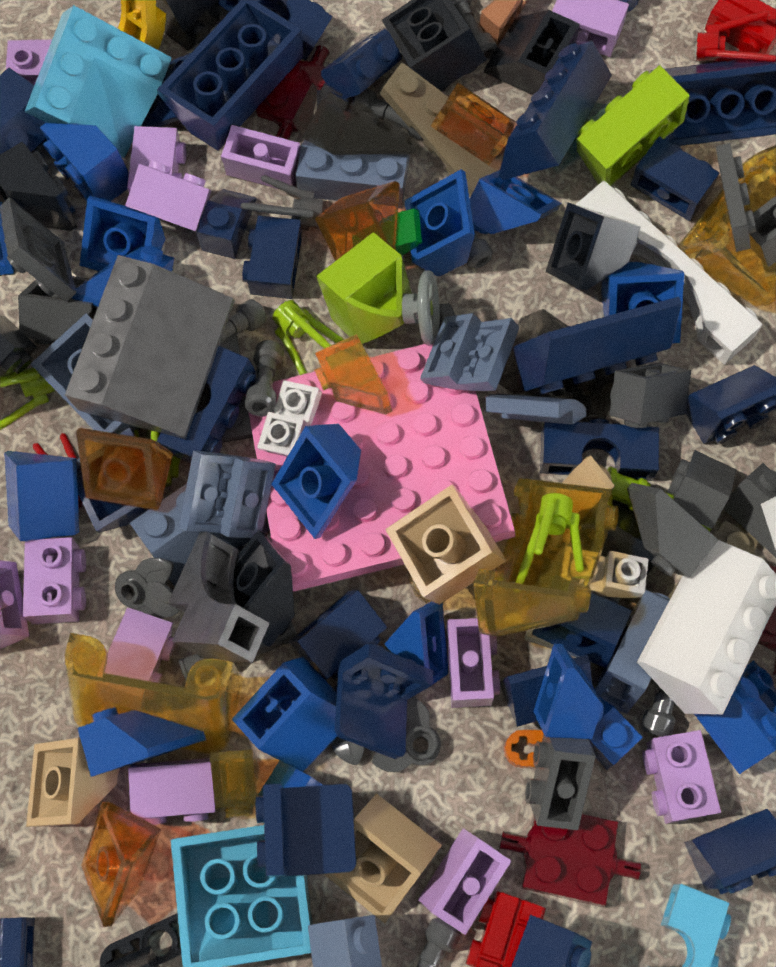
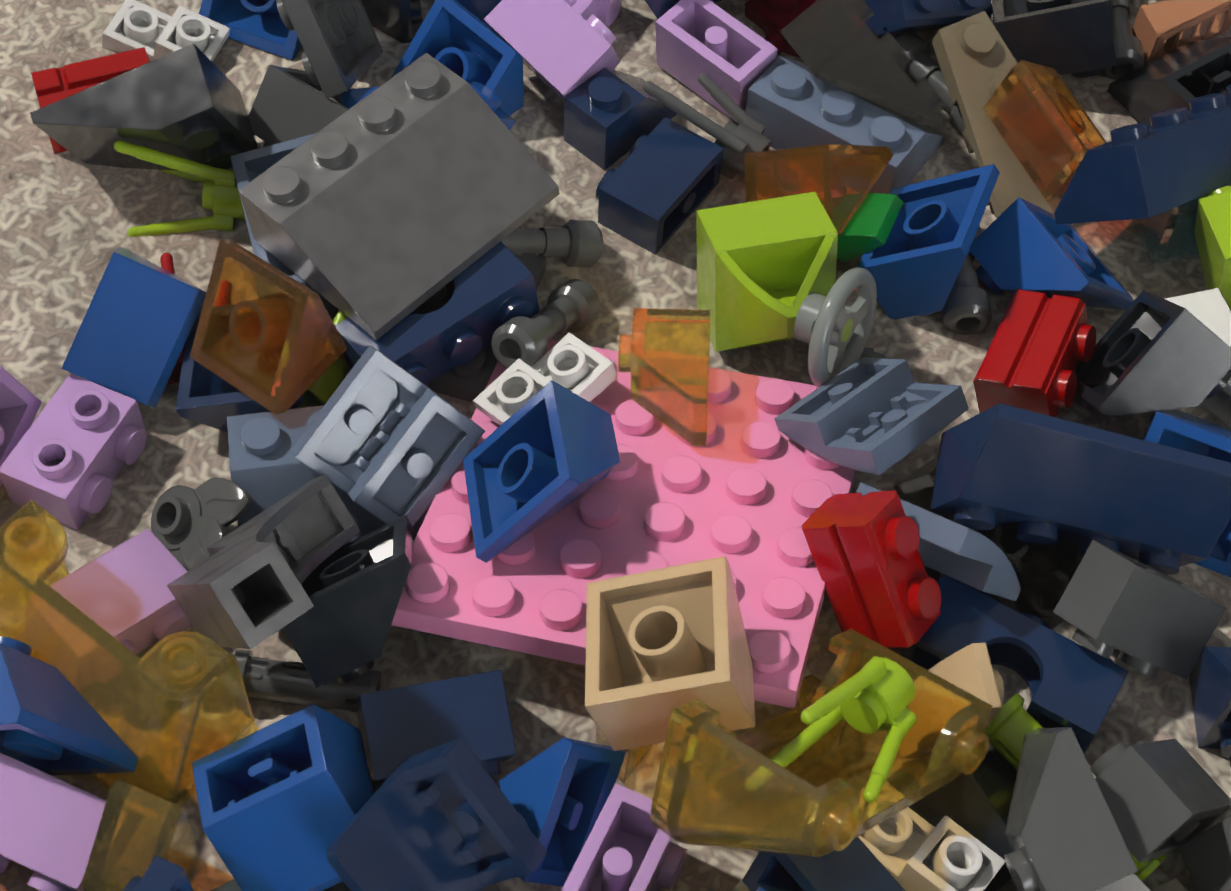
camera: 25 degrees right, 15 degrees down
(296, 322) = (638, 282): lime plant -> none
(515, 441) = (873, 567): none -> red brick
(528, 269) = (1036, 354): none -> red brick

